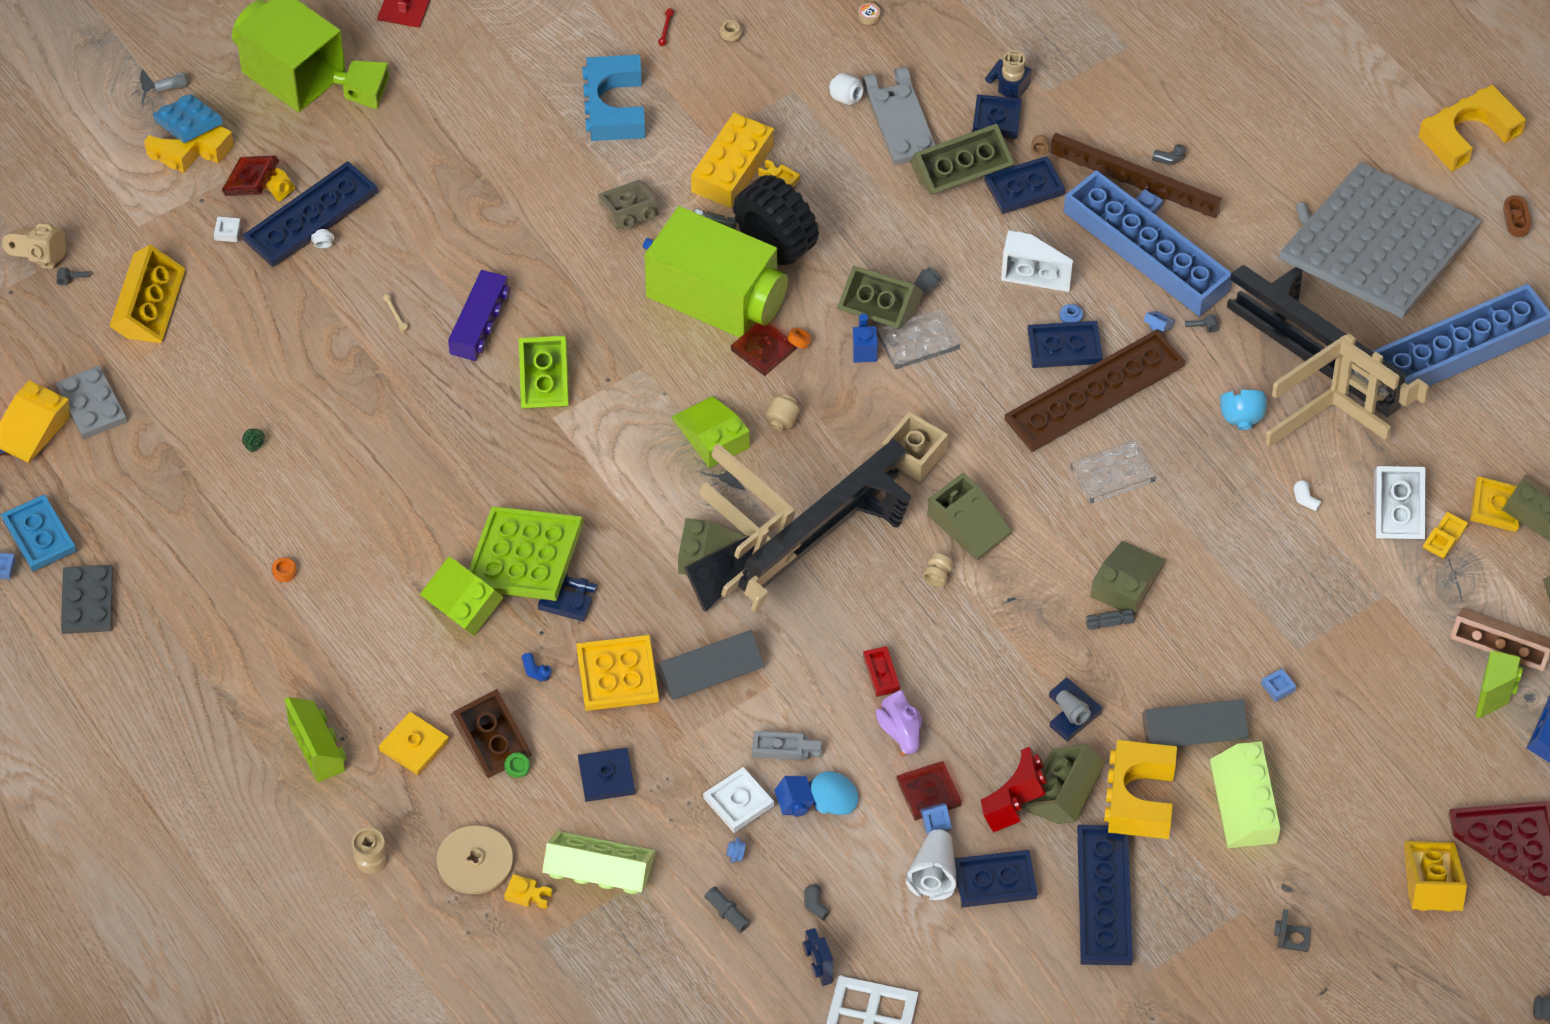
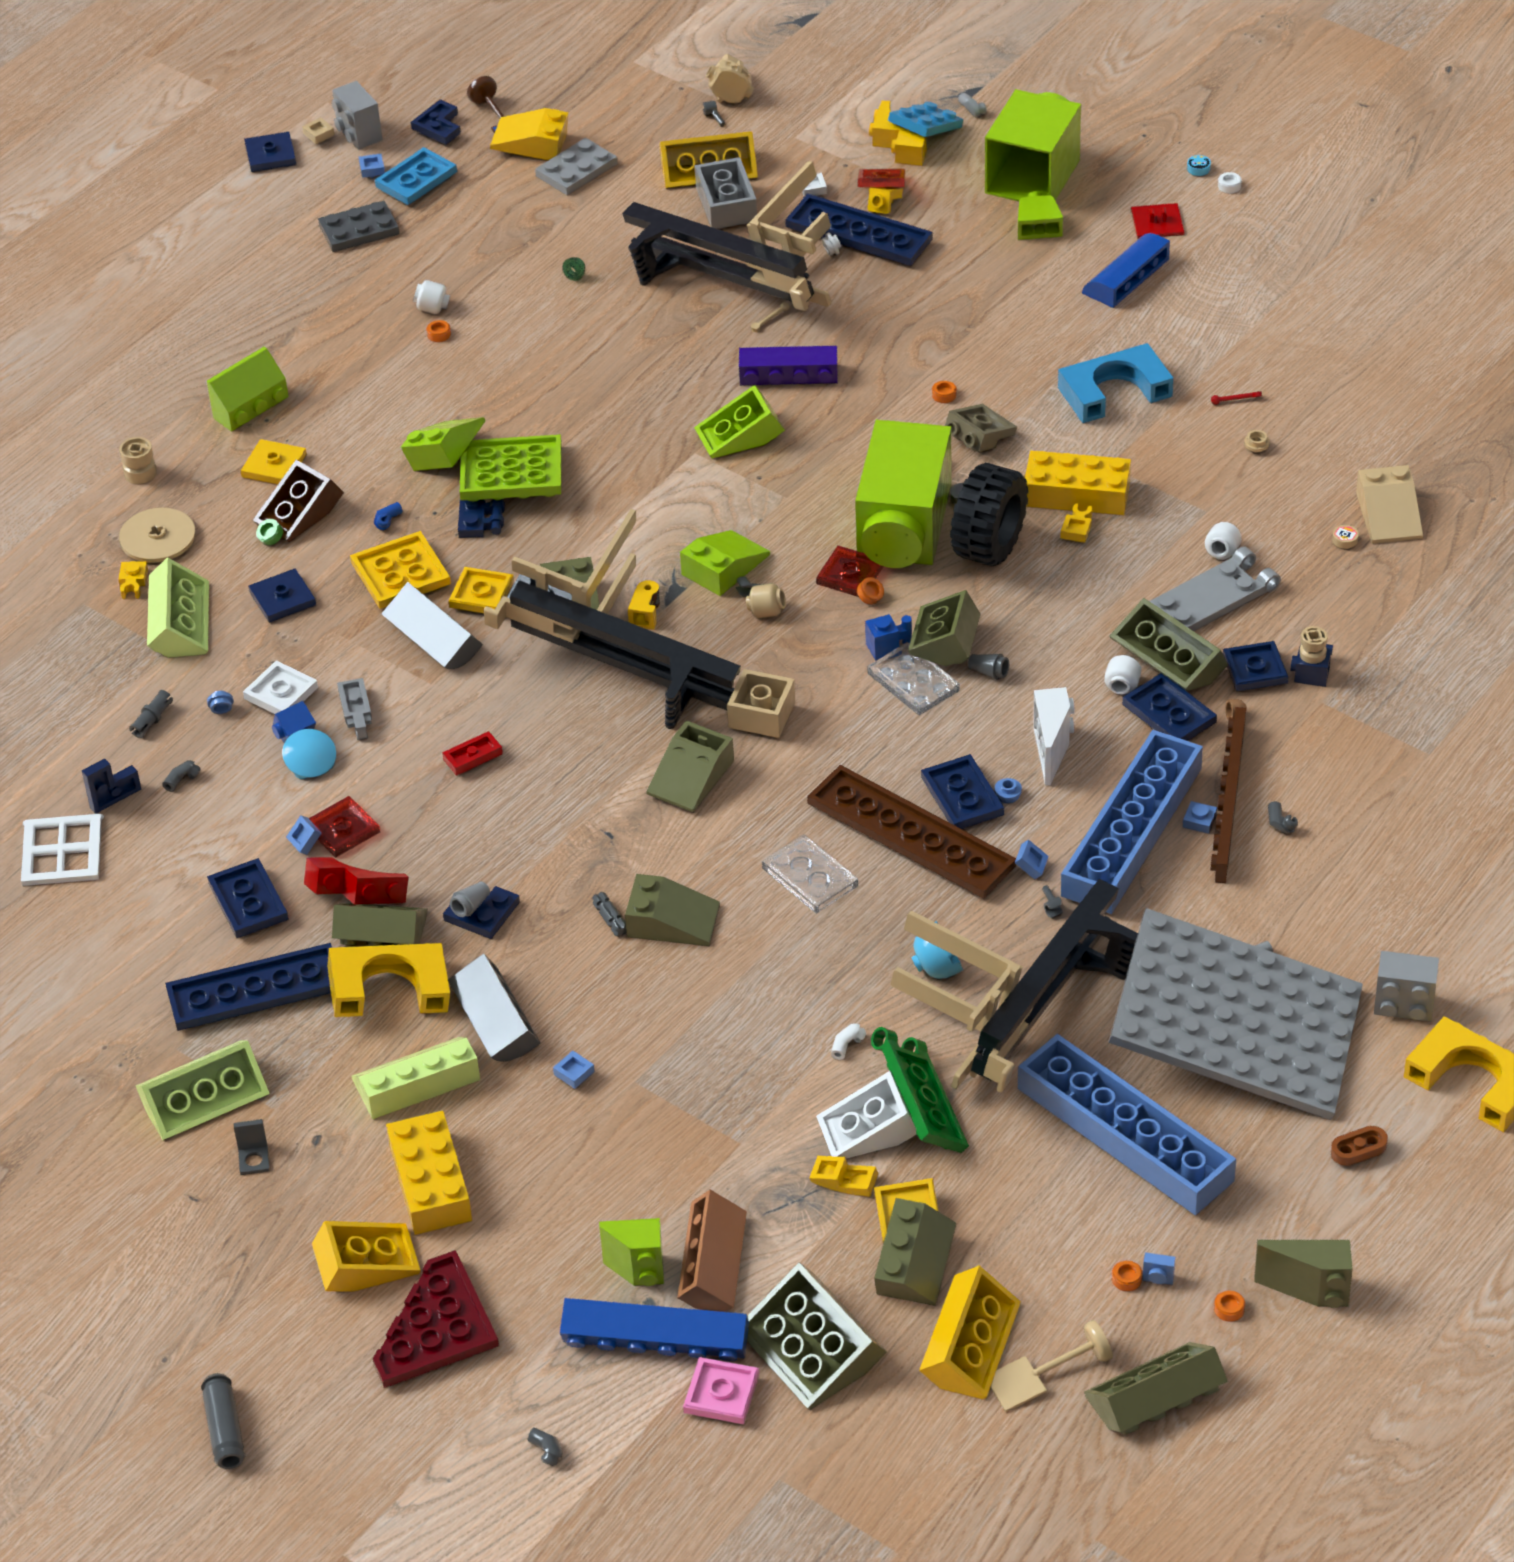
camera: 75 degrees right, 10 degrees down
(213, 293) = (725, 193): none -> light grey brick
(239, 561) = (431, 297): none -> white head
(329, 310) = (767, 268): none -> black piece
(467, 44) = (1128, 270): none -> blue brick
(561, 218) = (944, 392): none -> orange tile
(673, 617) = (480, 589): none -> yellow plate
(745, 501) = (644, 605): none -> yellow leg
(752, 424) = (745, 586): none -> dark grey hand
(900, 722) = (410, 779): lavender animal -> none
(933, 867) = (244, 841): white cone -> none
(938, 569) = (616, 763): tan wheel -> none
(977, 200) = (1122, 674): none -> white head
(1211, 955) = (202, 1089): none -> yellowish green slope
(1362, 809) = (429, 1172): none -> yellow brick
(1384, 456) = (921, 1090): none -> green hinge
(1385, 133) = (1406, 986): none -> light grey brick

